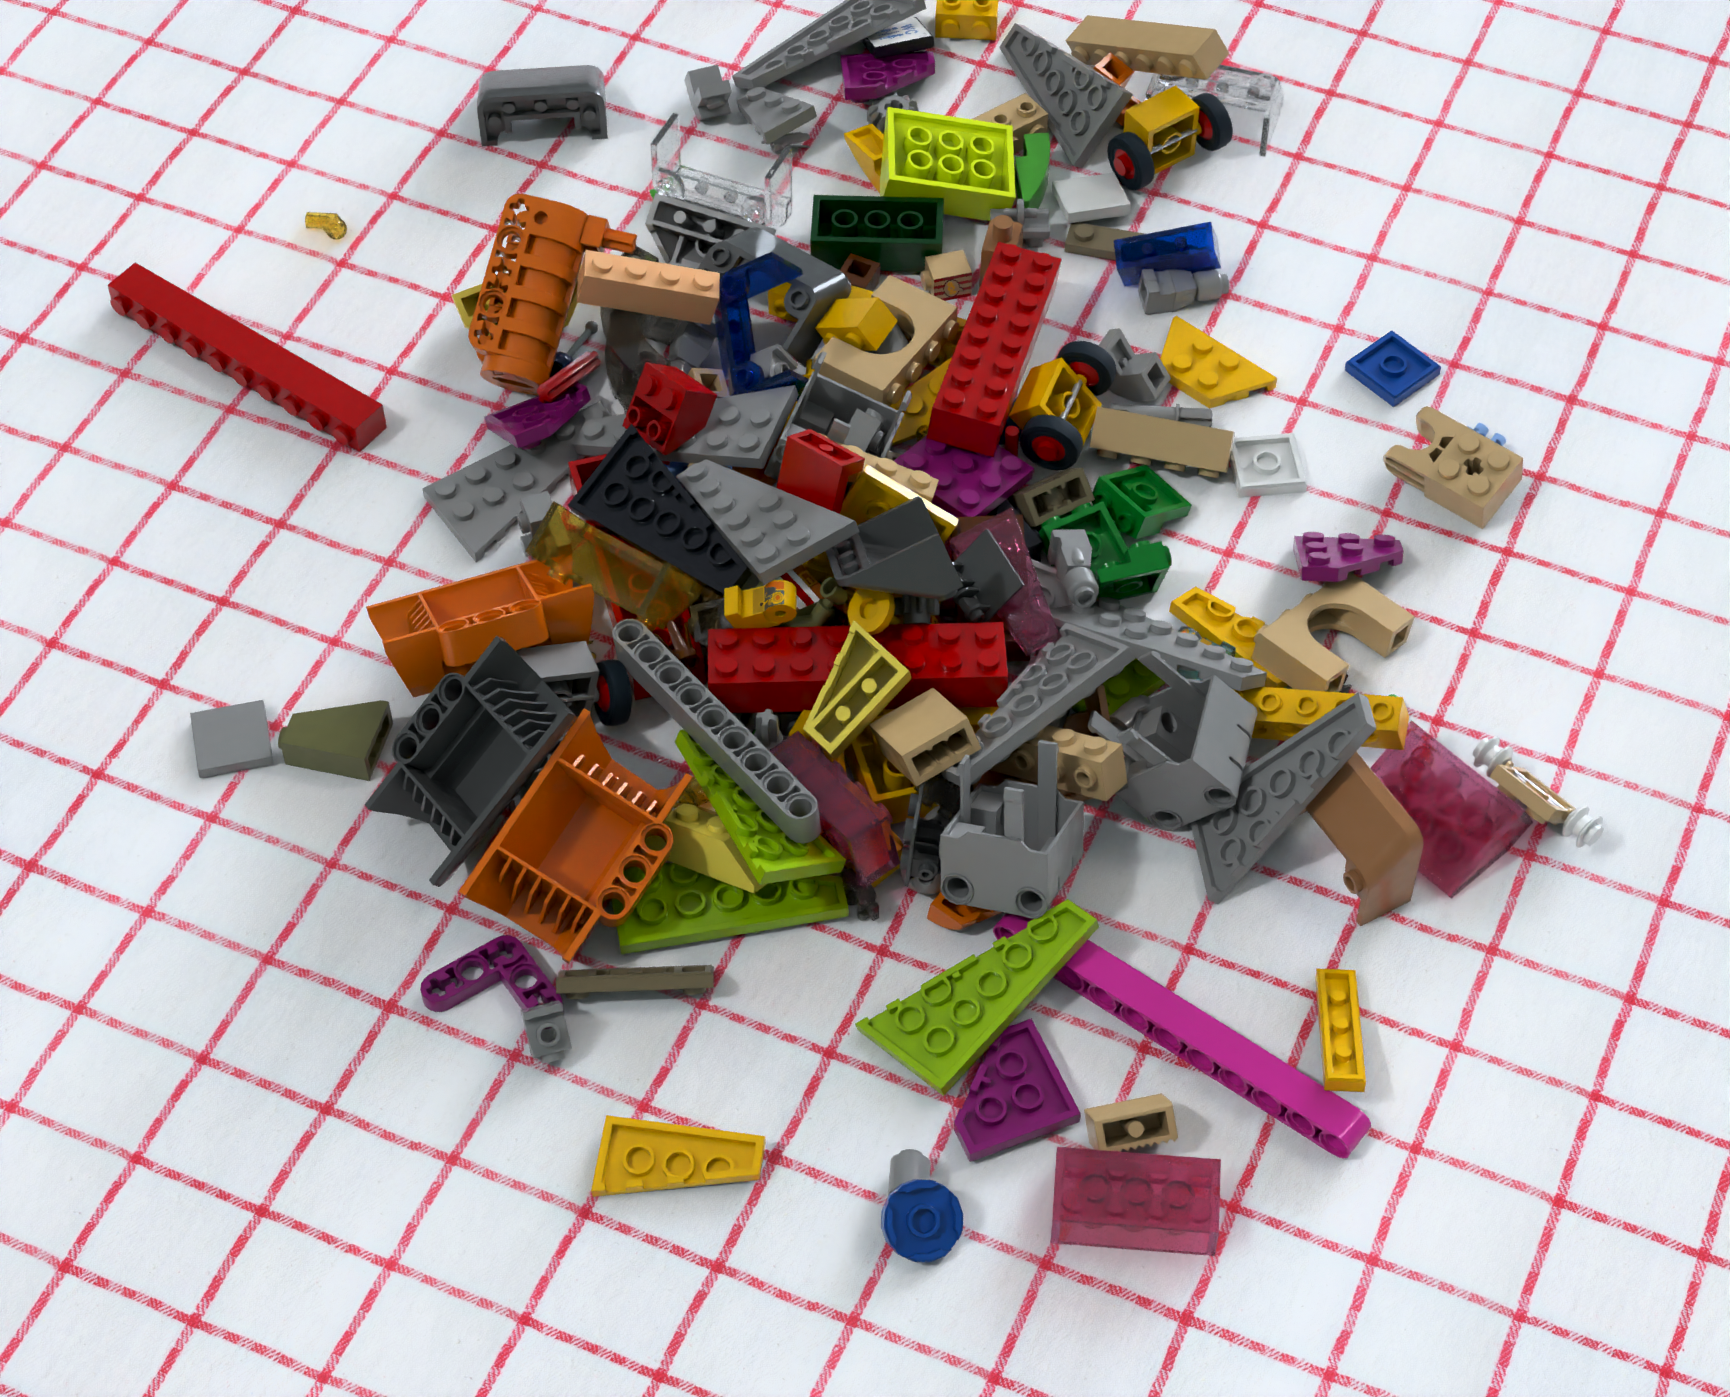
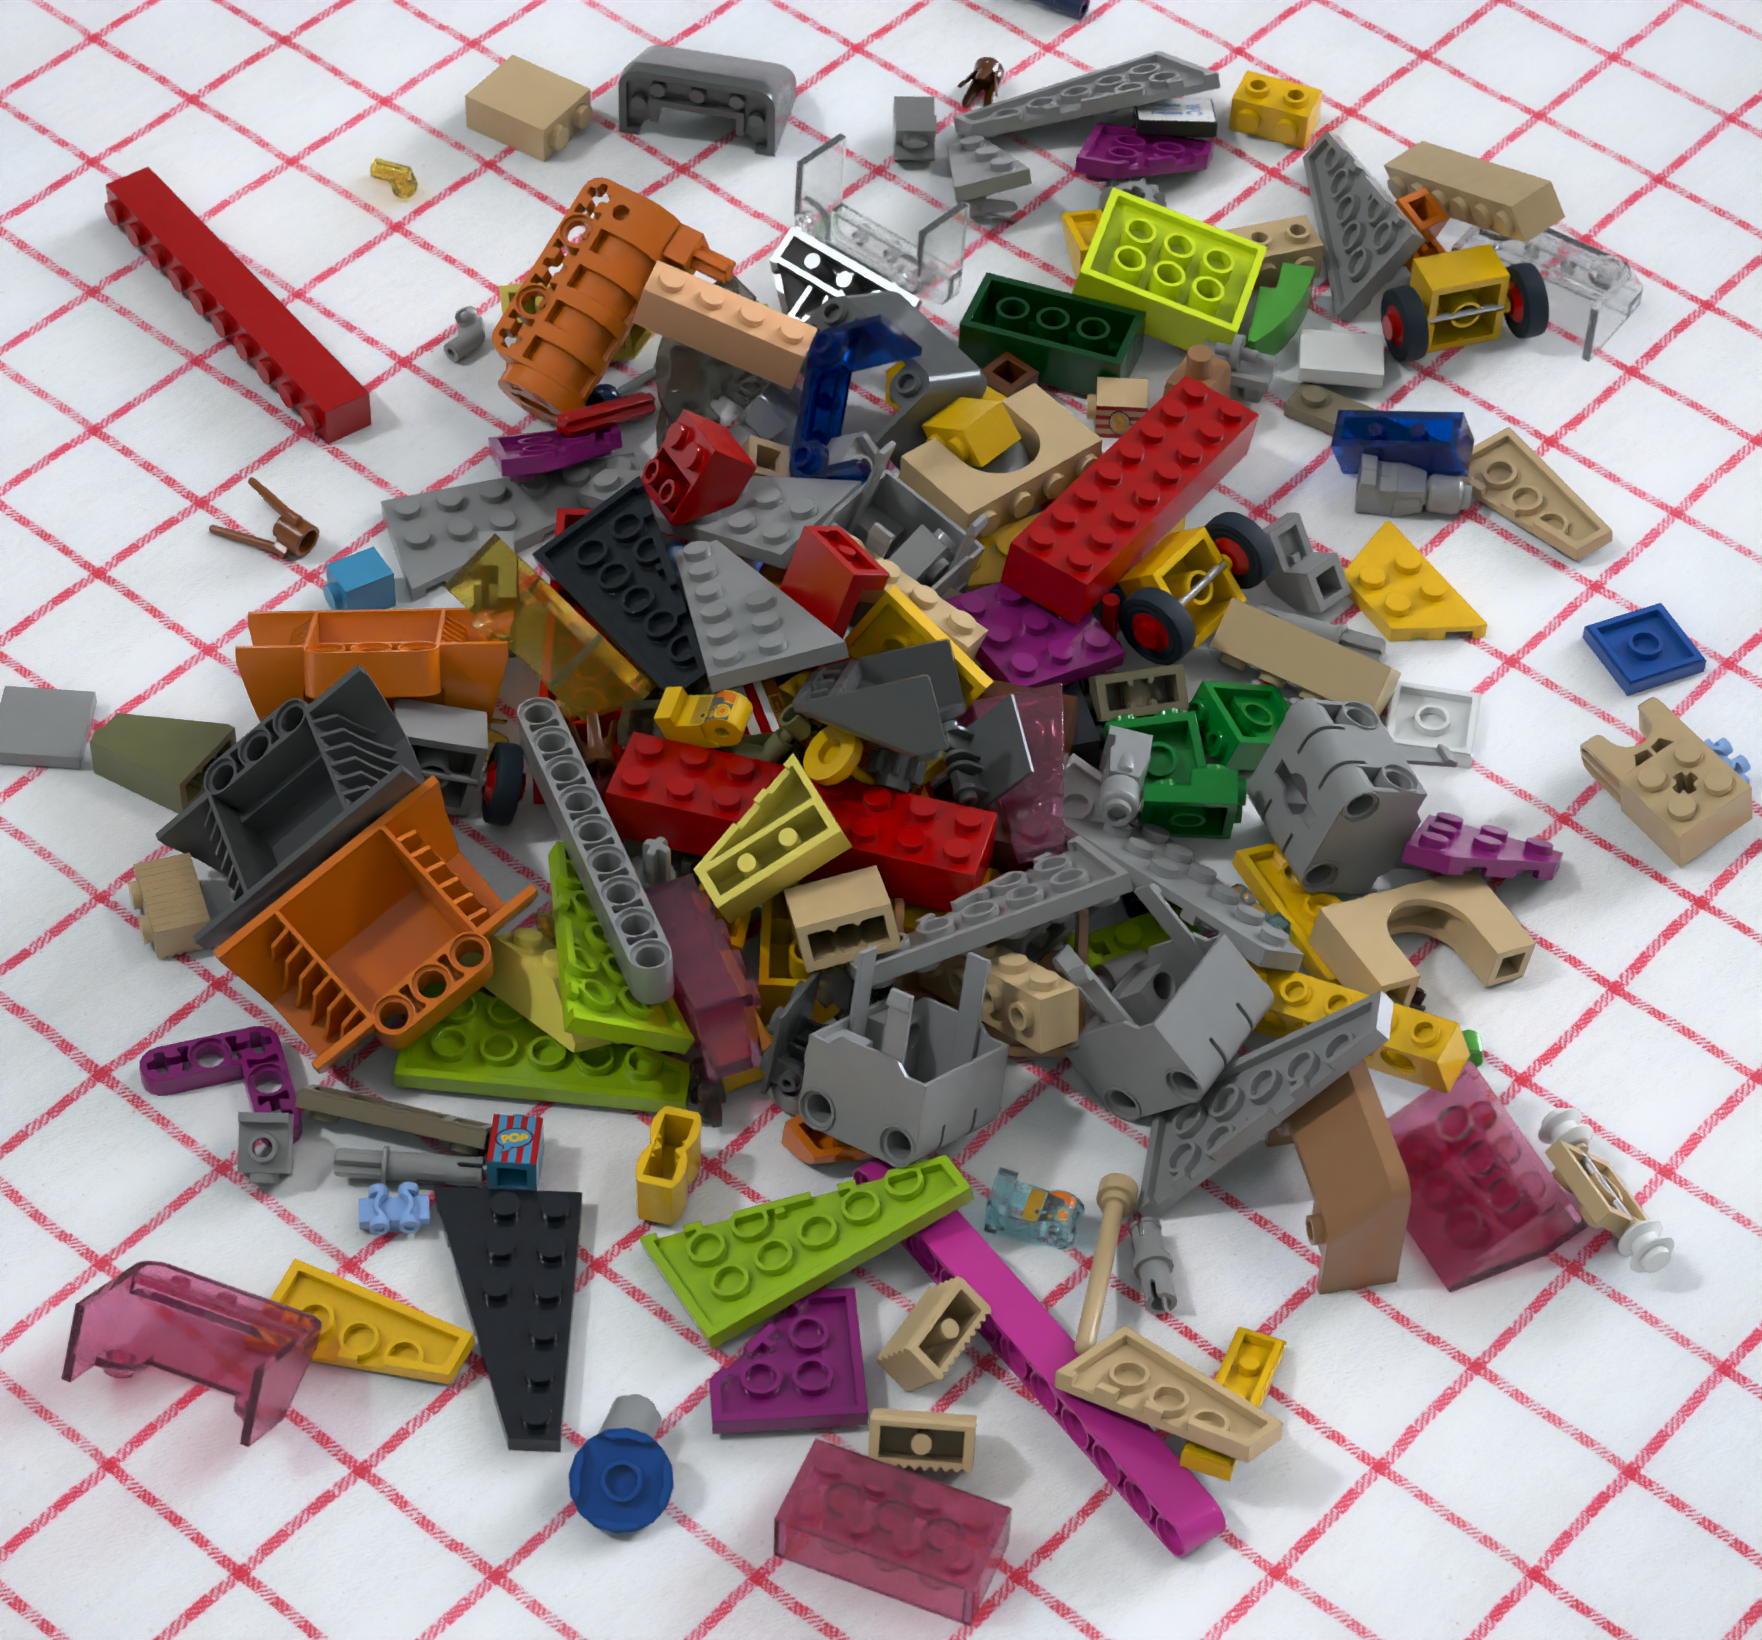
camera: 15 degrees right, 5 degrees down
(364, 530) = (291, 530): none -> dark orange plant
(394, 857) = (171, 904): none -> tan brick
(408, 144) = (528, 108): none -> tan brick
(434, 560) = (360, 582): none -> dark azure brick
(435, 335) = (470, 334): none -> light grey arm
(562, 1196) = (198, 1332): none -> clear pink windscreen
(659, 1016) = (409, 1167): none -> light grey axle
(661, 1056) = (394, 1214): none -> light blue piece
(737, 984) = (515, 1152): none -> dark azure brick
(743, 38) = (985, 76): none -> reddish brown piece
(780, 1089) = (518, 1285): none -> black wing
(857, 961) = (668, 1165): none -> yellow brick
(1106, 1039) = (934, 1334): none -> tan brick
(1135, 922) = (1032, 1212): none -> clear light blue leg
(1191, 895) = (1116, 1199): none -> tan piece
(1237, 938) = (1153, 1265): none -> light grey pin
(1253, 532) = (1340, 794): none -> light grey piece
(1271, 271) = (1529, 493): none -> tan wing
(1296, 1038) = (1167, 1393): none -> tan wing

